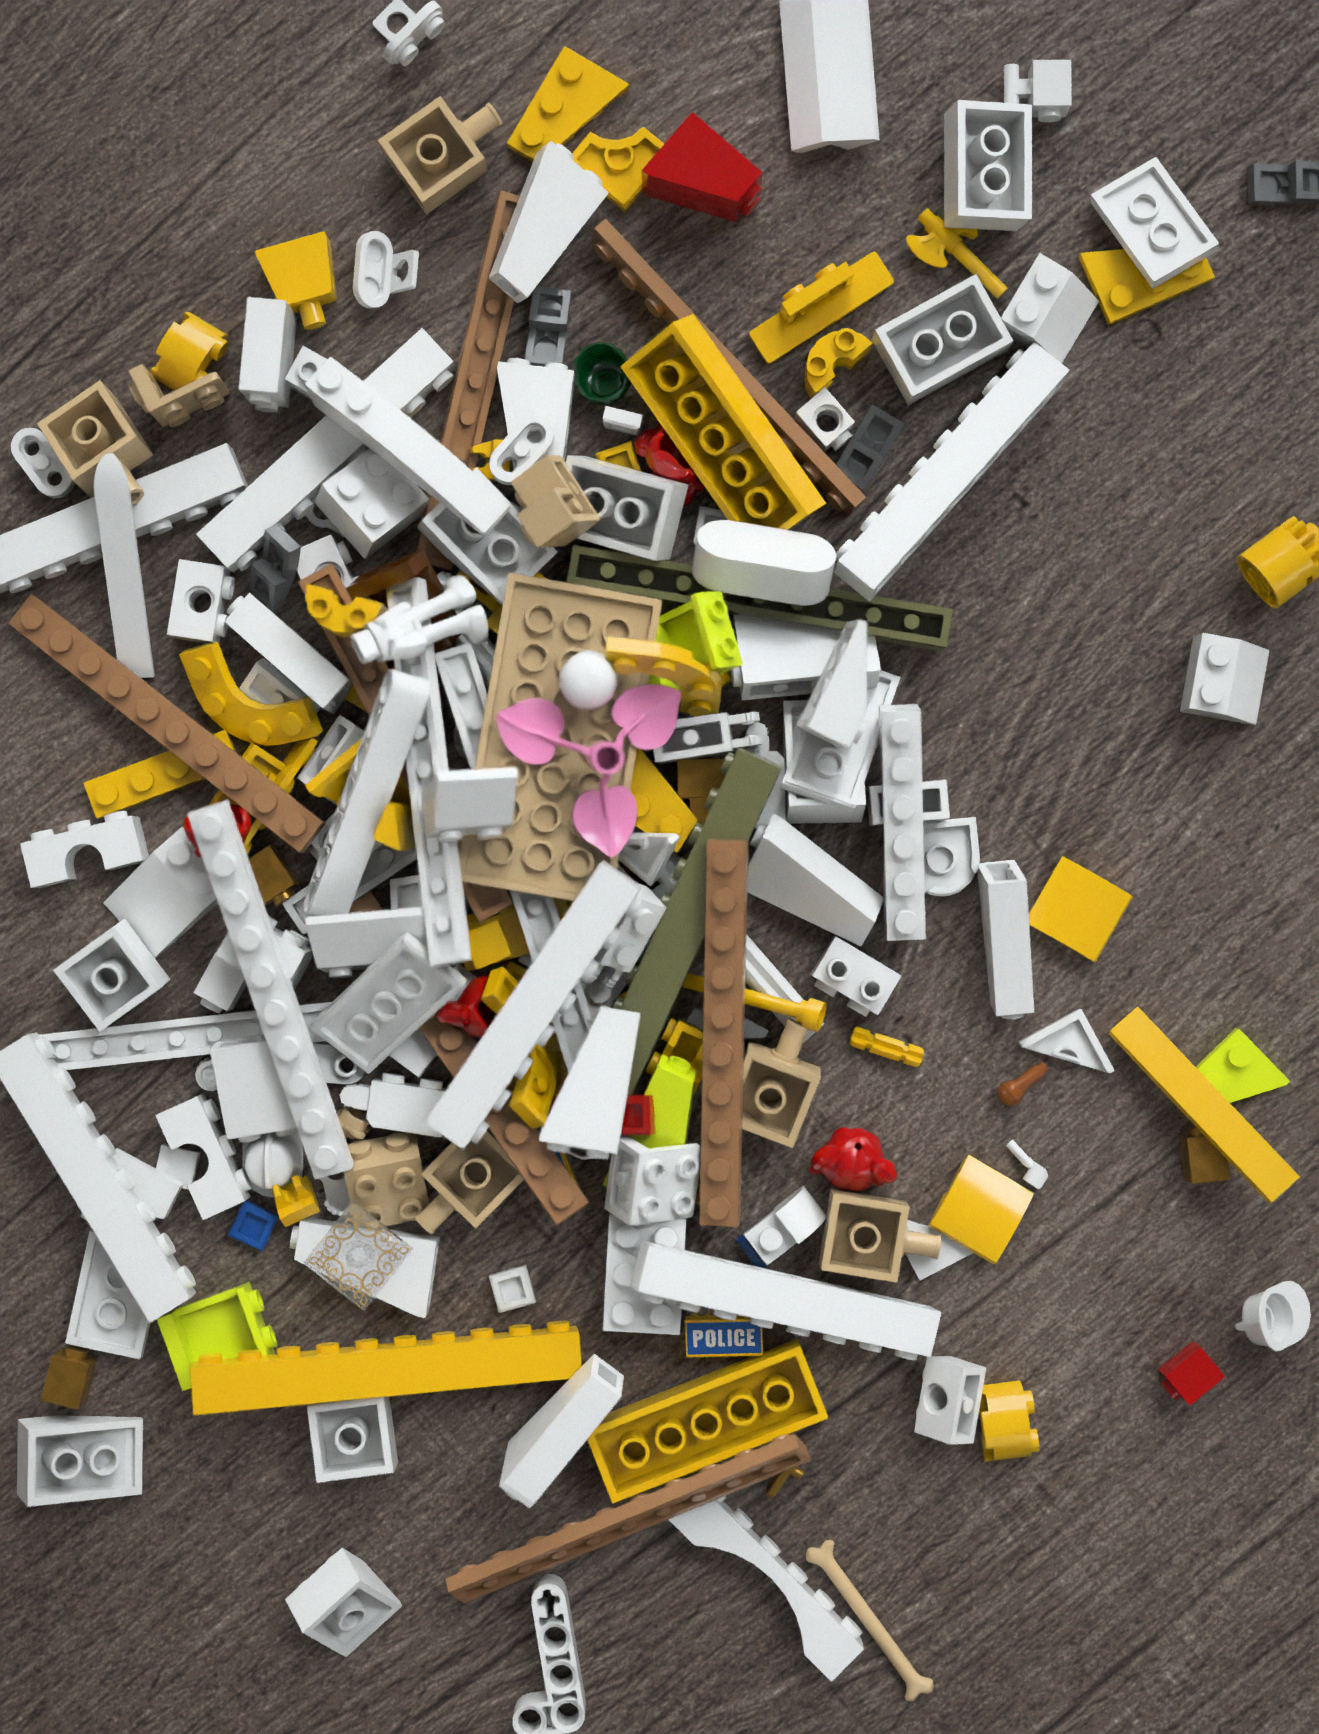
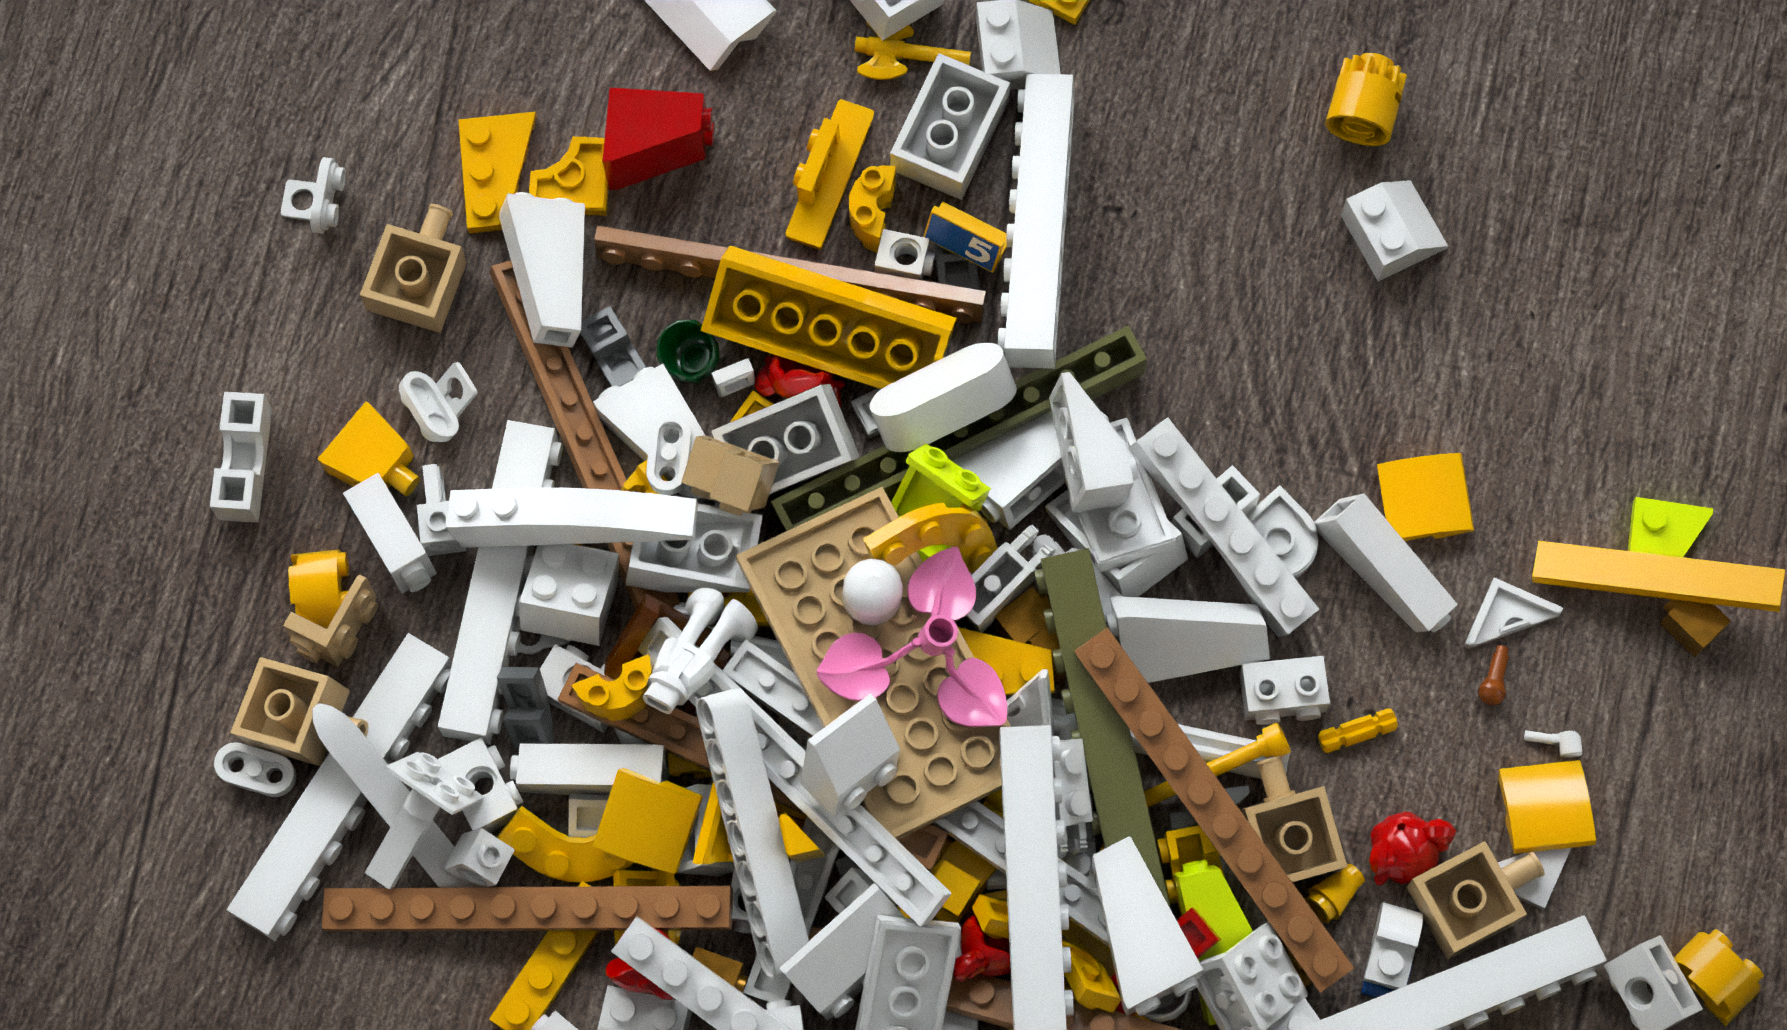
camera: 40 degrees left, 15 degrees down
(152, 584) = (430, 790): none -> white piece
(157, 658) = (479, 858): none -> white brick
(217, 188) = (245, 433): none -> white arch
(296, 727) = (647, 821): none -> yellow slope
(331, 339) = (434, 484): none -> white tile
(768, 1156) = (1334, 893): none -> yellow cone
(885, 440) = (966, 236): none -> panel

